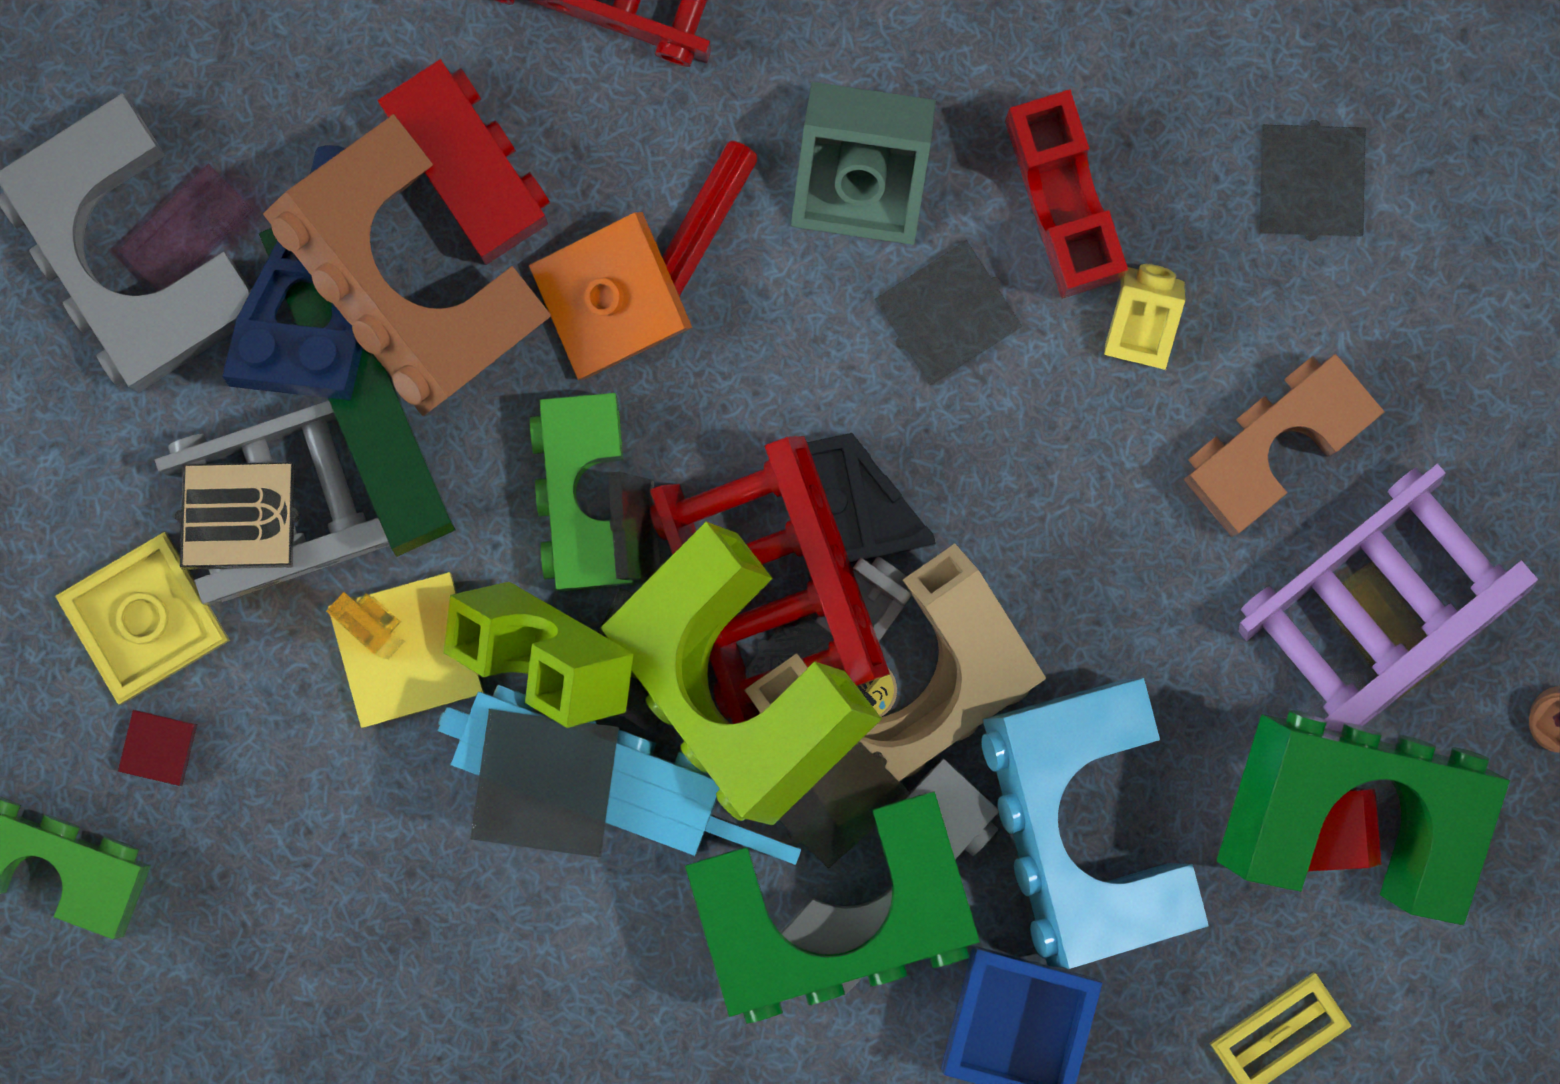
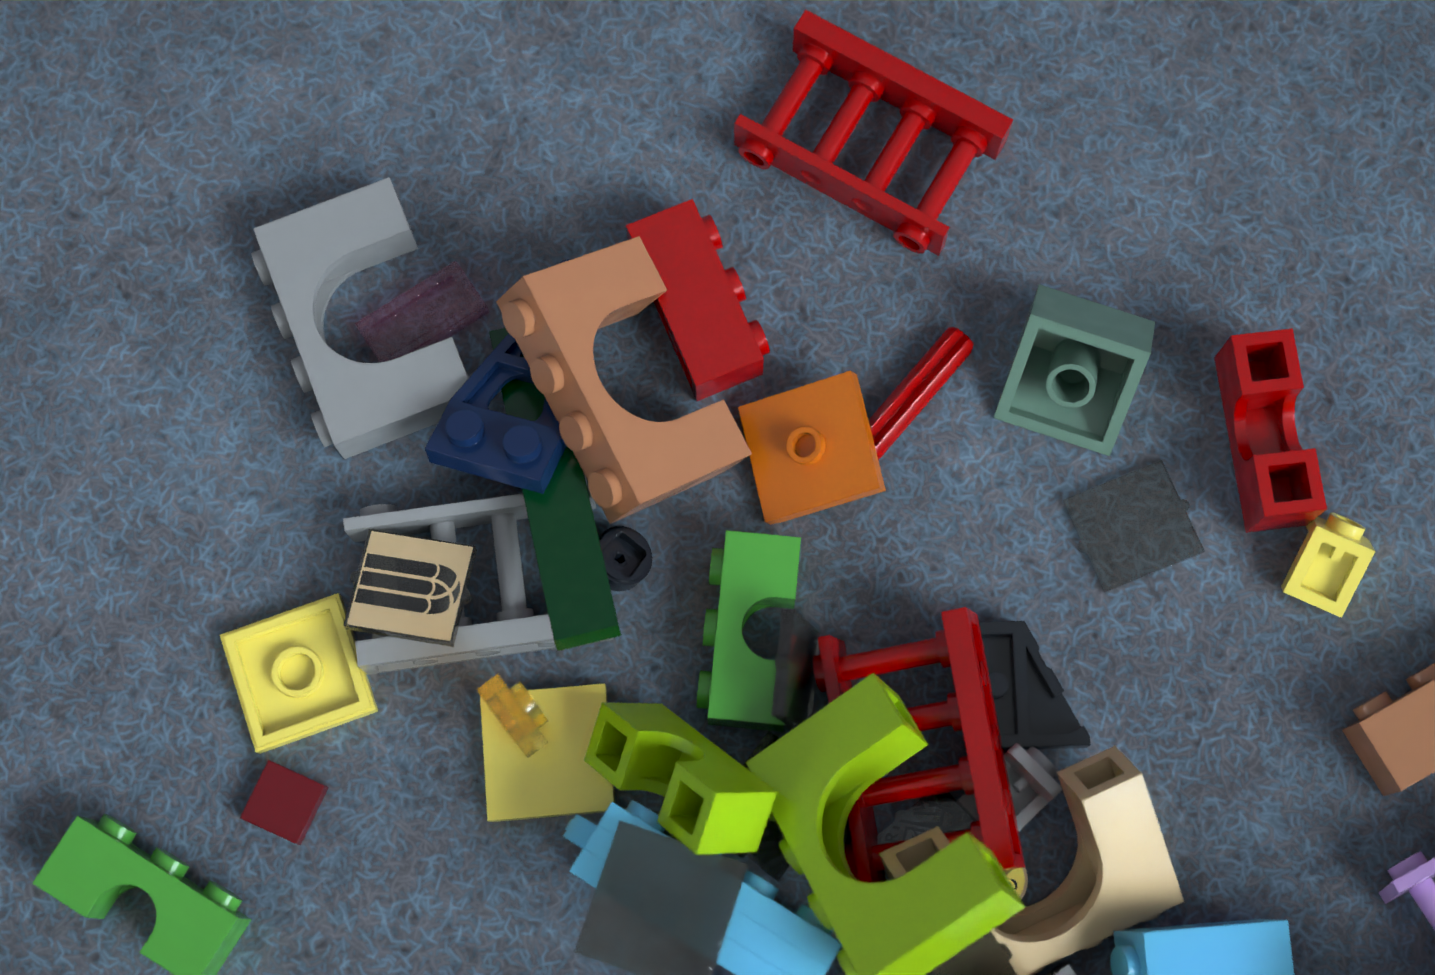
camera: 15 degrees right, 10 degrees down
(444, 442) = (625, 557): none -> black tile

